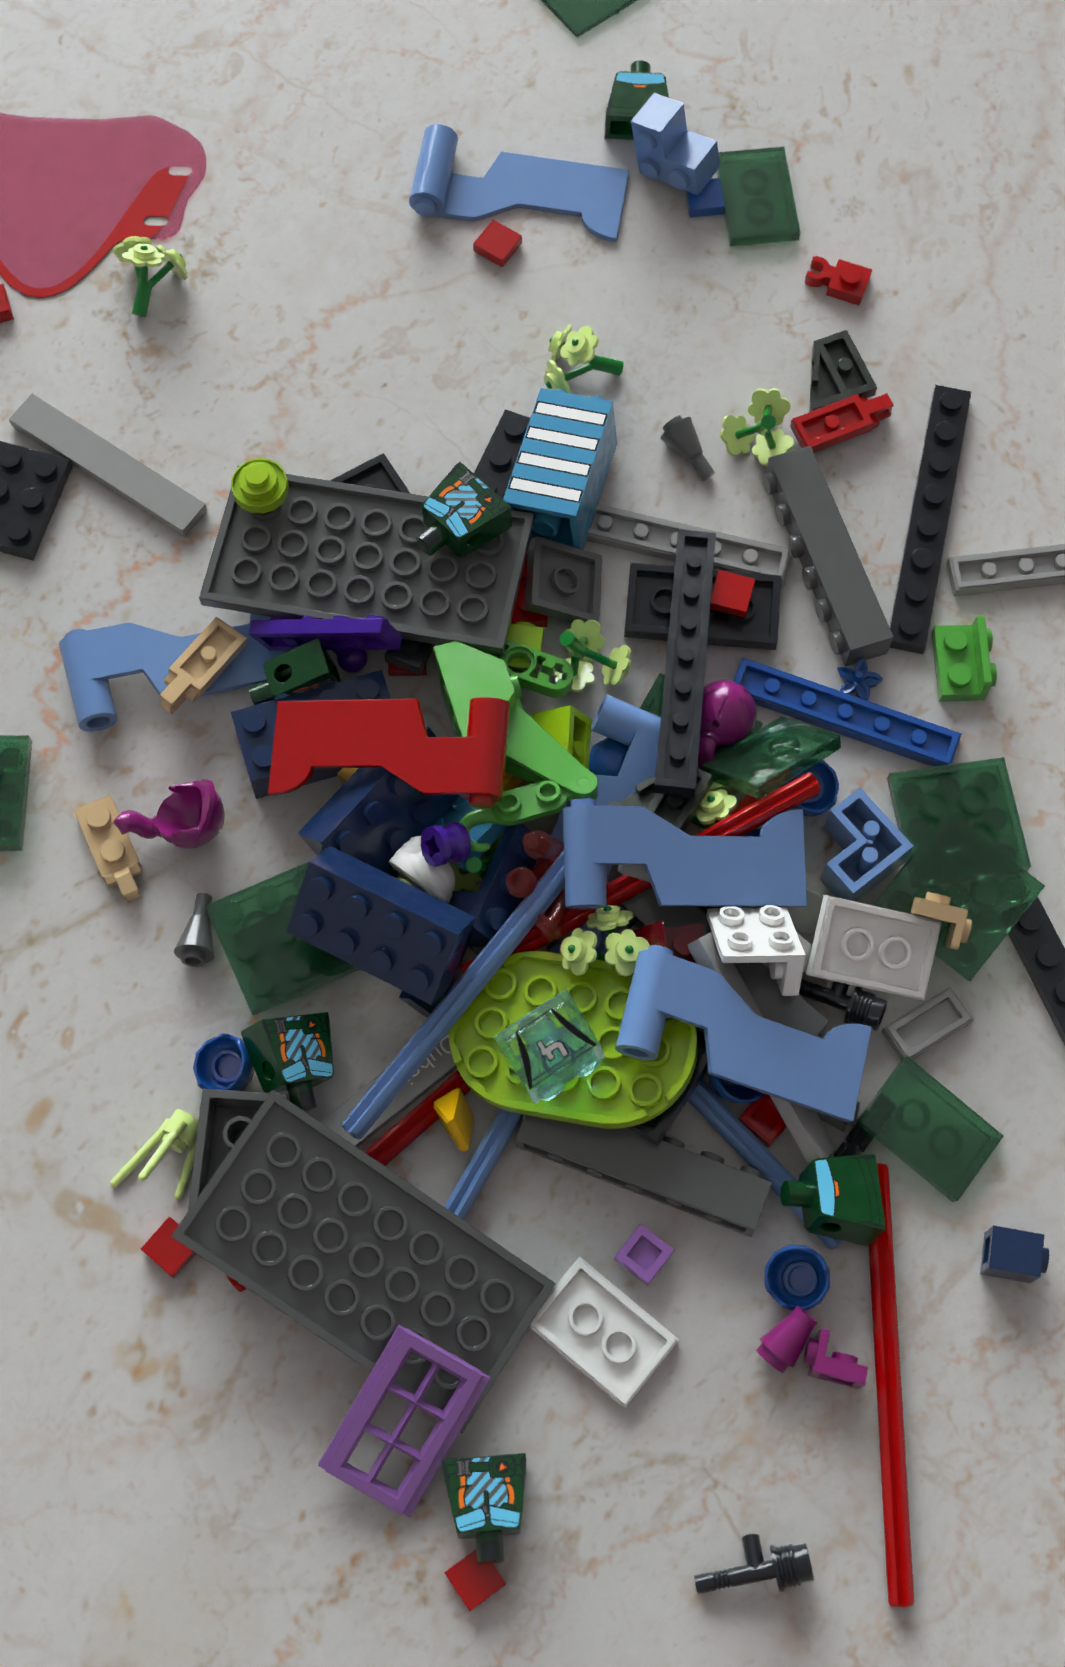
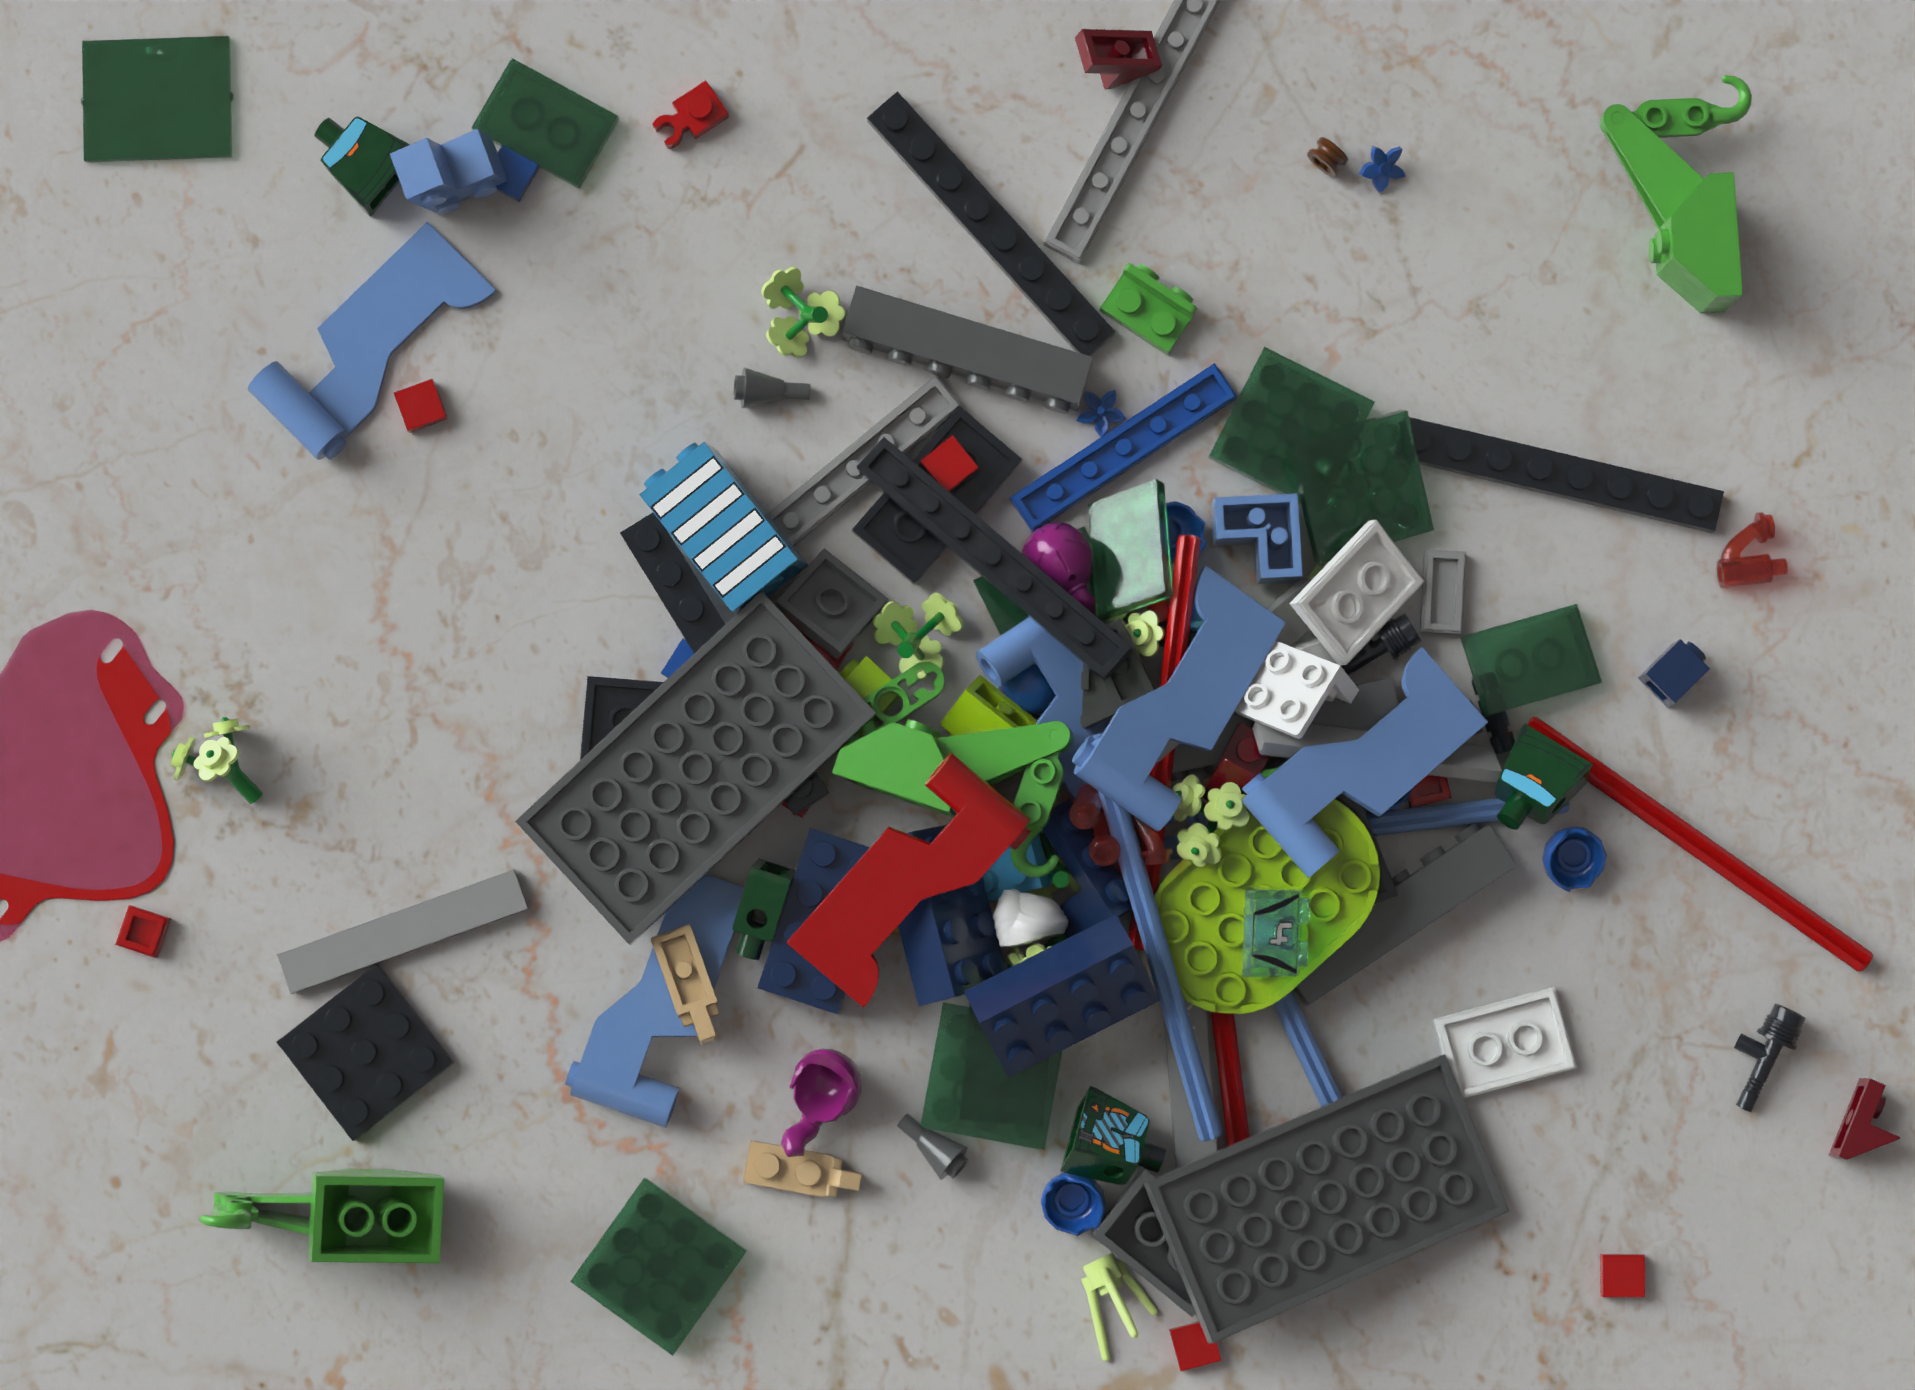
camera: 55 degrees left, 15 degrees up
(259, 485) = (559, 817): lime plate -> none
(343, 635) = (759, 842): dark purple plate -> none
(439, 1440) = (1436, 1262): medium lavender piece -> none
(445, 844) = (1030, 892): dark purple wheel -> none
(456, 1118) = (1252, 1038): yellow slope -> none
(462, 514) = (724, 659): torso -> none
(486, 1500) = (1574, 1227): torso -> none
(576, 348) = (609, 422): yellowish green plant -> none
(643, 1254) = (1469, 966): medium lavender plate -> none
(786, 1340) = (1615, 904): magenta cone -> none
(838, 371) = (792, 198): pearl dark grey wing -> none
(839, 1368) = (1665, 879): magenta bracket -> none
(840, 421) = (842, 235): red hinge -> none
(938, 908) = (1370, 514): tan bracket -> none

